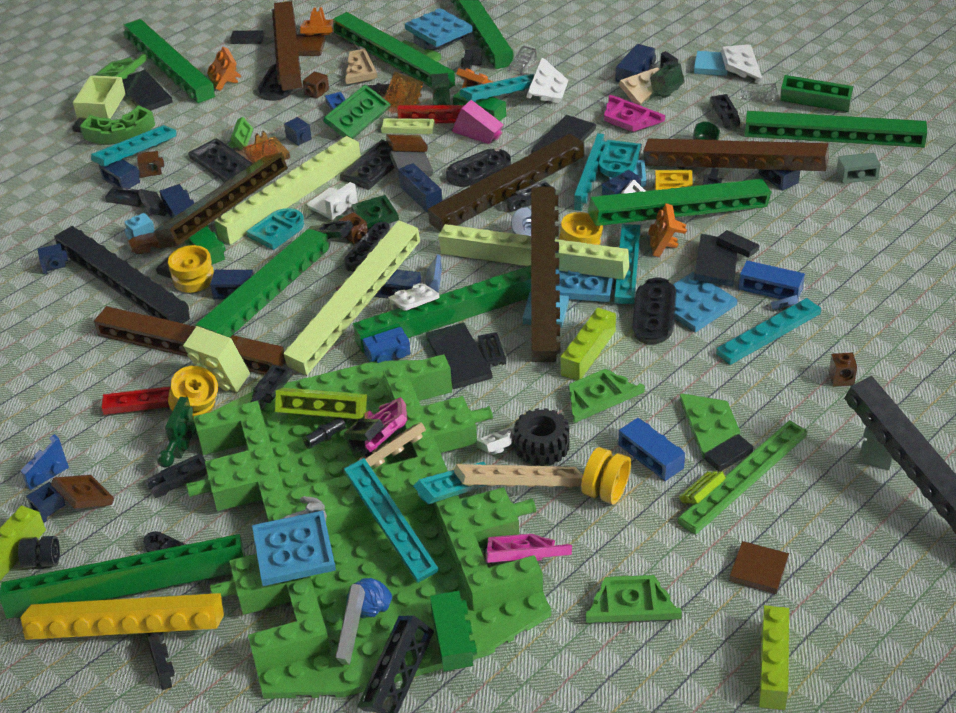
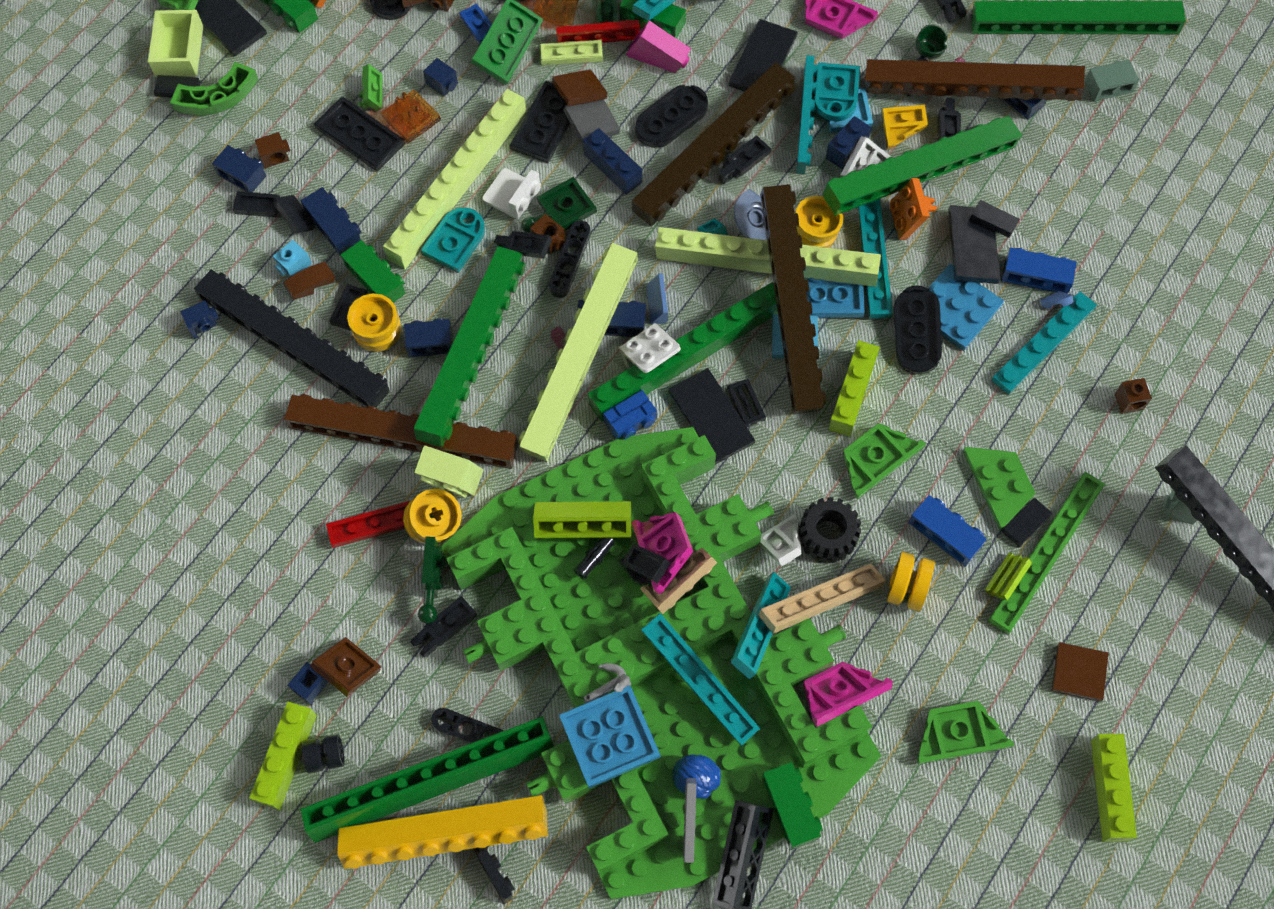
camera: 10 degrees left, 25 degrees up
(45, 464) = (291, 636): blue wing -> none
(133, 145) = (246, 127): teal plate -> none
(220, 200) = (384, 215): dark brown brick -> none
(273, 380) = (516, 495): black hinge -> none

